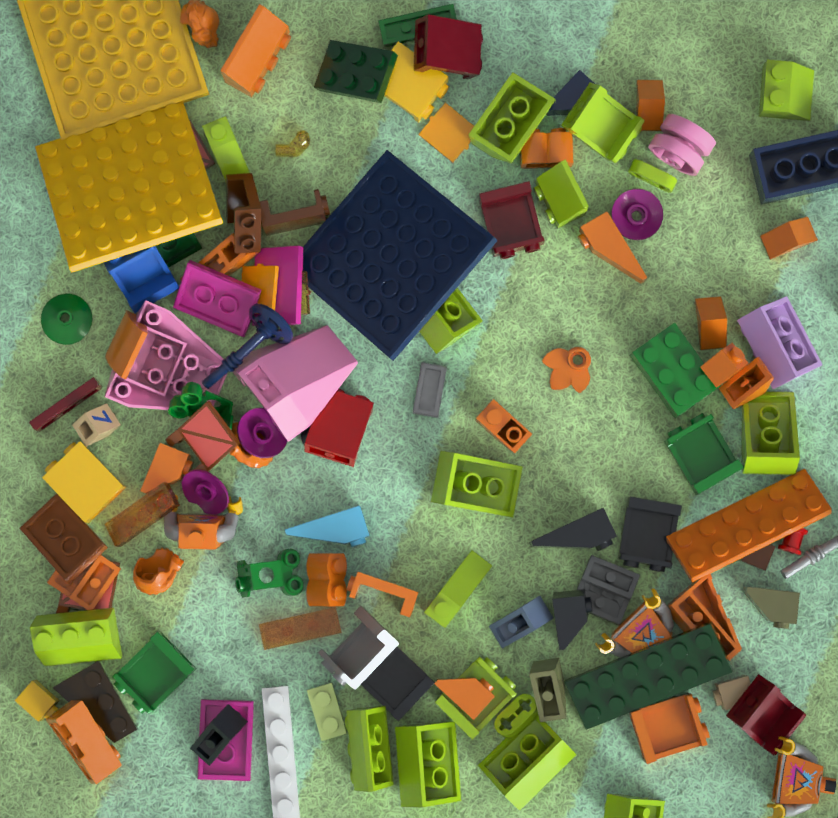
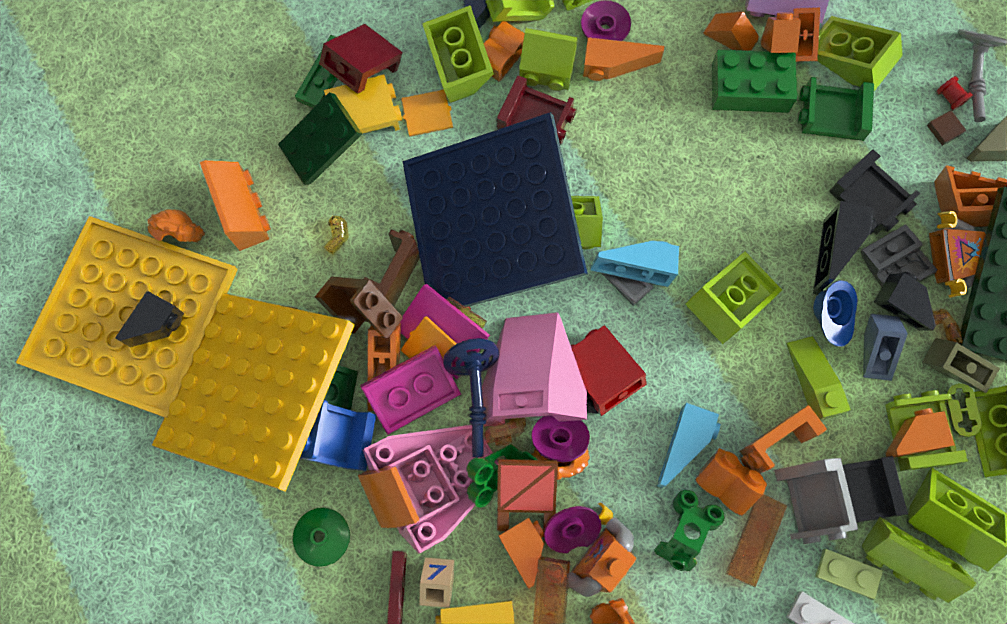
camera: 55 degrees left, 10 degrees down
(119, 69) = (150, 321): none -> black slope
(225, 147) = (290, 287): lime slope -> none
(235, 391) = (504, 433): none -> clear orange bracket
(450, 398) = (646, 262): none -> medium azure slope
(503, 426) = (703, 238): orange slope -> none
(519, 570) = (836, 312): none -> blue piece
(565, 371) = (689, 163): orange plate -> none
(579, 665) = (950, 326): none -> clear orange arm
(748, 525) = (923, 115): orange plate -> none

